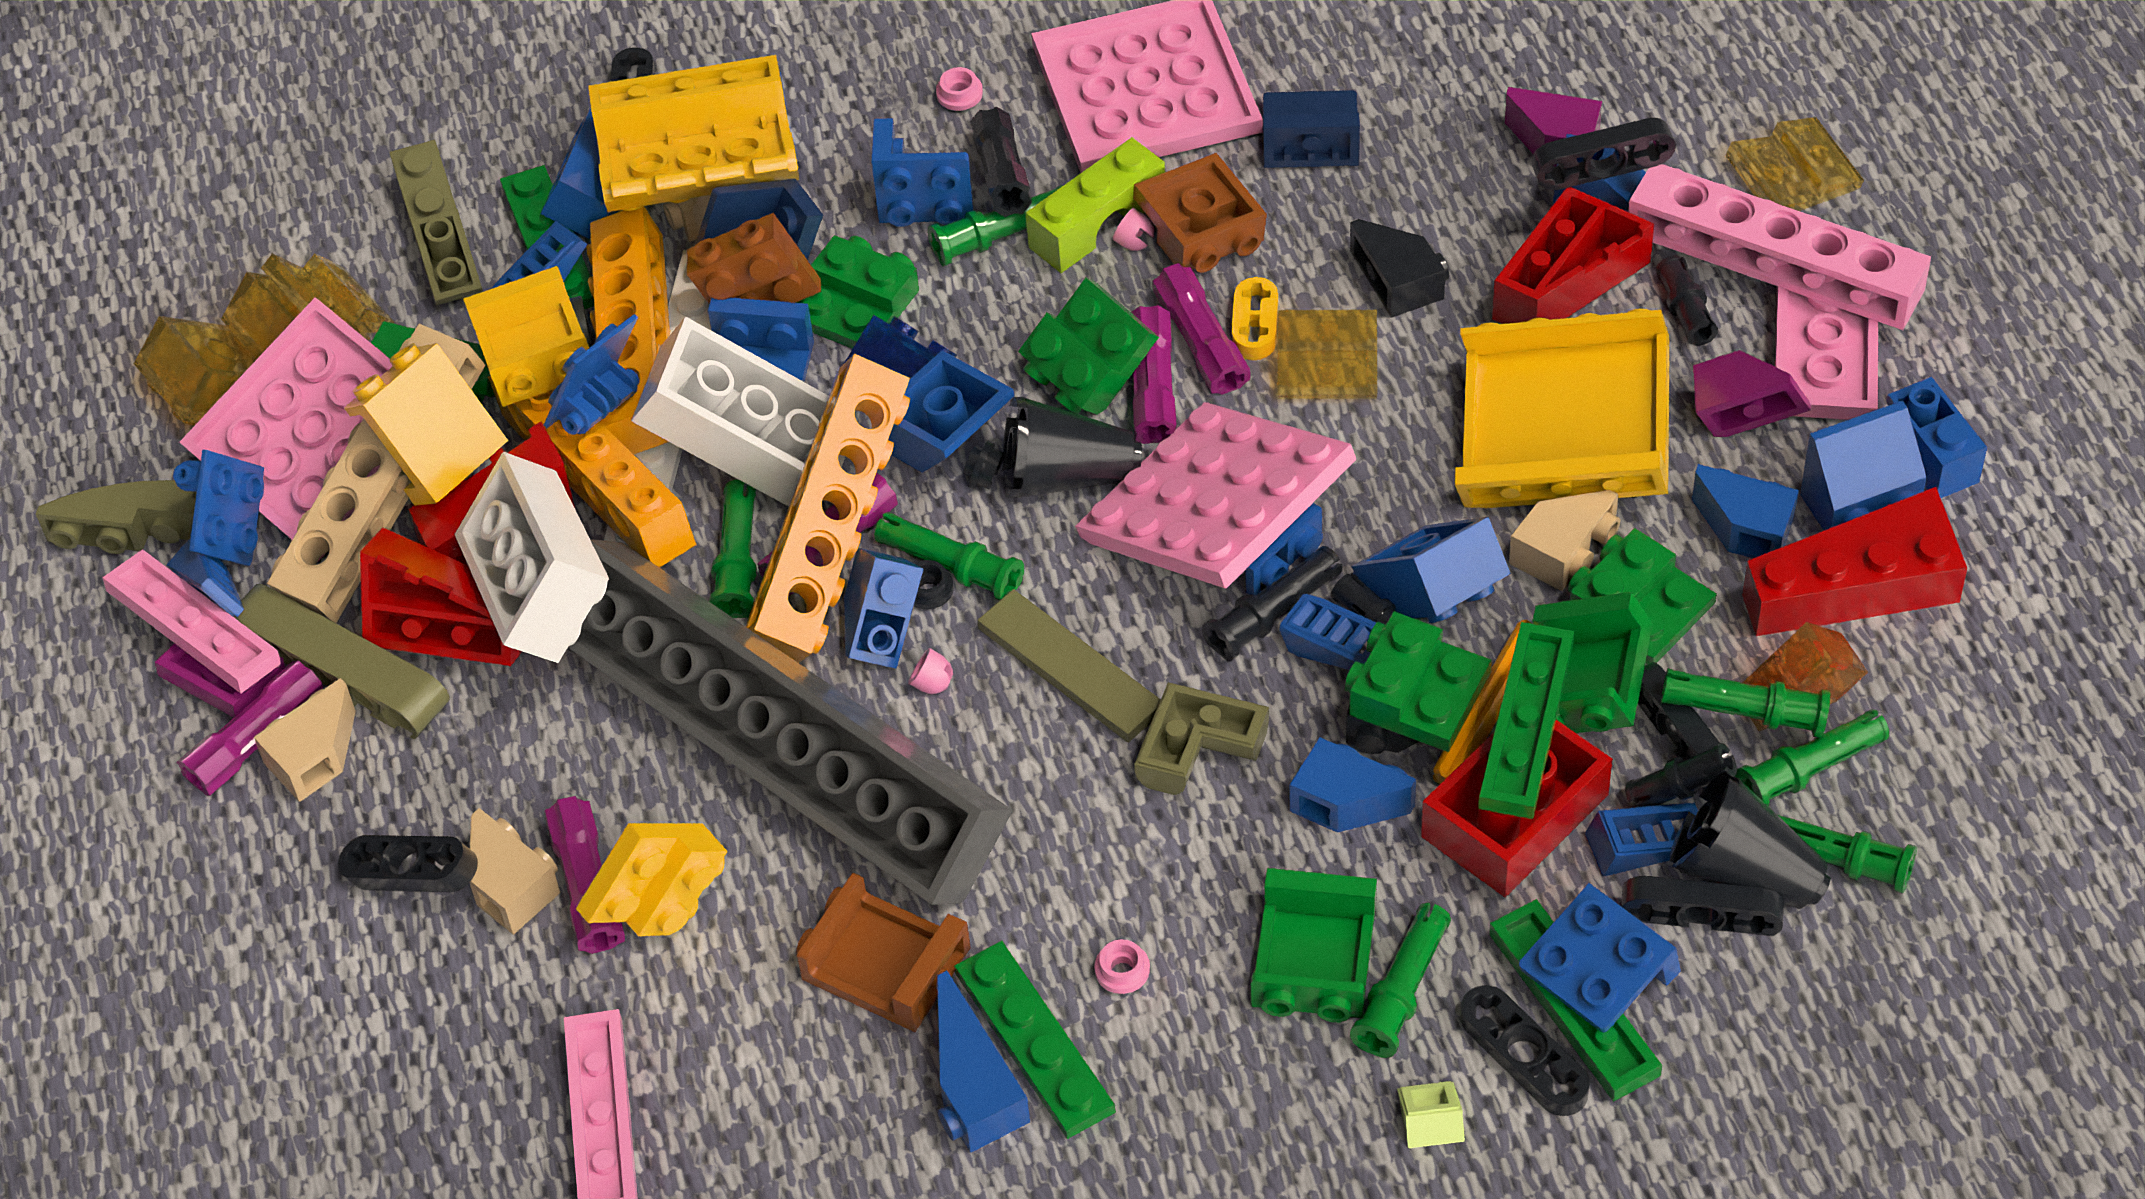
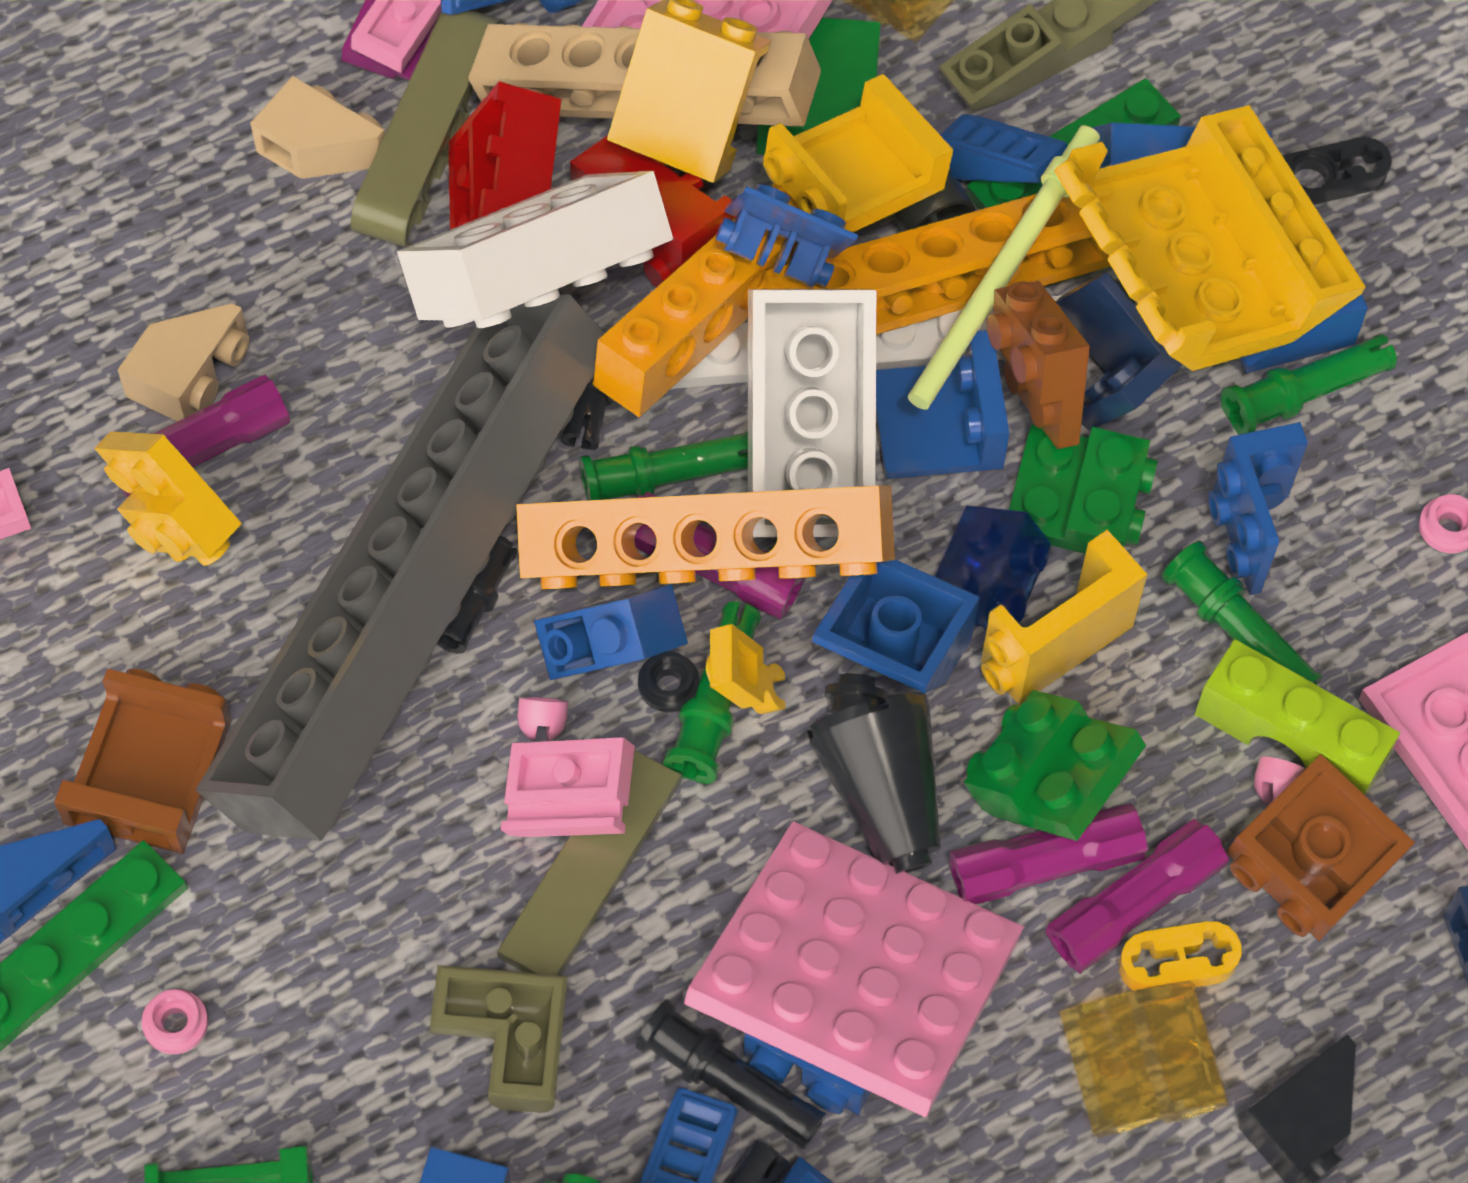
camera: 70 degrees right, 10 degrees up
(223, 752) = (281, 55): magenta axle -> none
(423, 876) = (173, 281): black beam -> none
(602, 222) = (996, 277): none -> yellowish green bar
(815, 155) = (1285, 391): none -> green pin
(945, 520) = (740, 673): none -> yellow plate
(964, 285) = (1101, 611): none -> yellow panel
(1001, 163) = (1291, 605): black axle -> none
(1006, 657) = (568, 787): none -> bright pink plate

